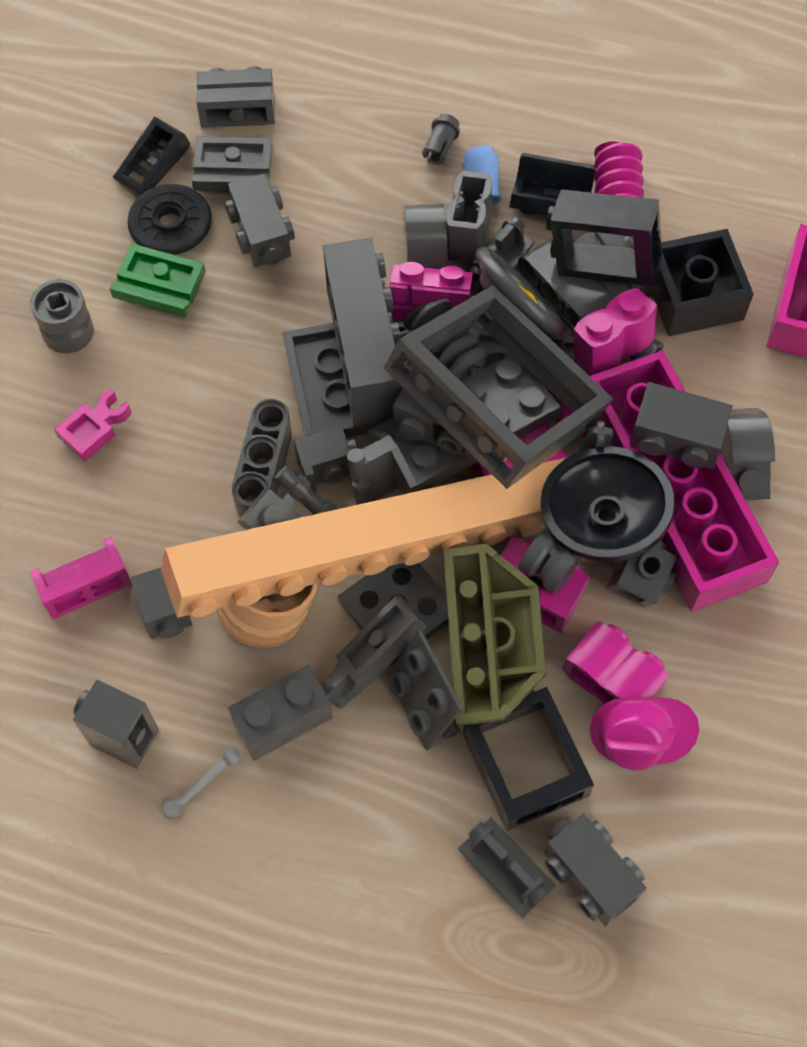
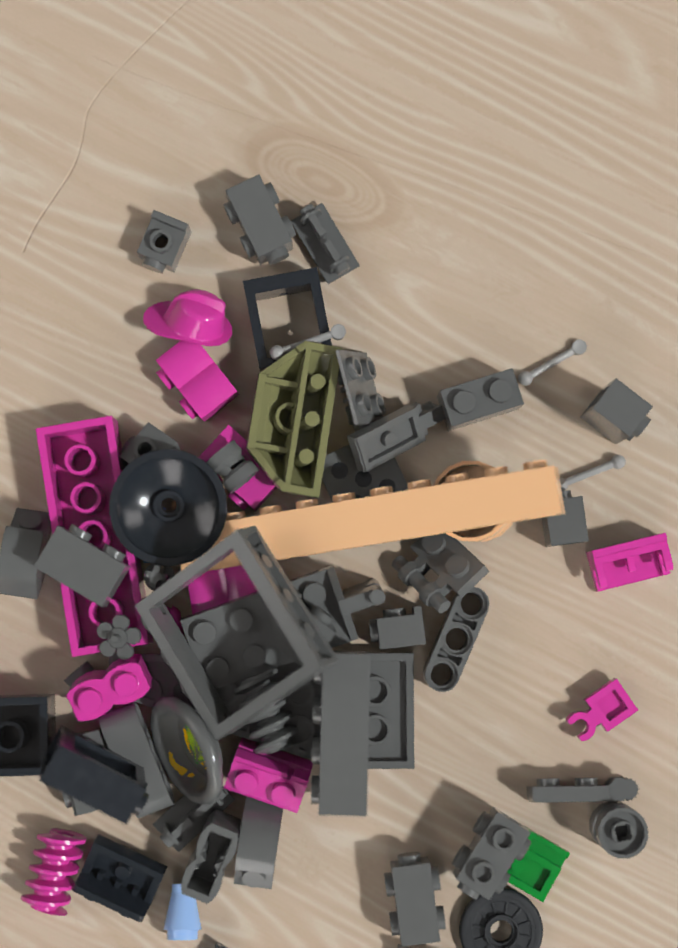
camera: 175 degrees left, 20 degrees up
(104, 345) = (584, 790): none -> dark grey hinge
(171, 645) = (616, 462): none -> light grey hinge
(190, 265) = (485, 862): none -> dark grey brick
(466, 745) = (337, 333): none -> light grey hinge
(620, 373) = (118, 637): none -> dark grey plant
(694, 834) = (168, 257): none -> dark grey brick

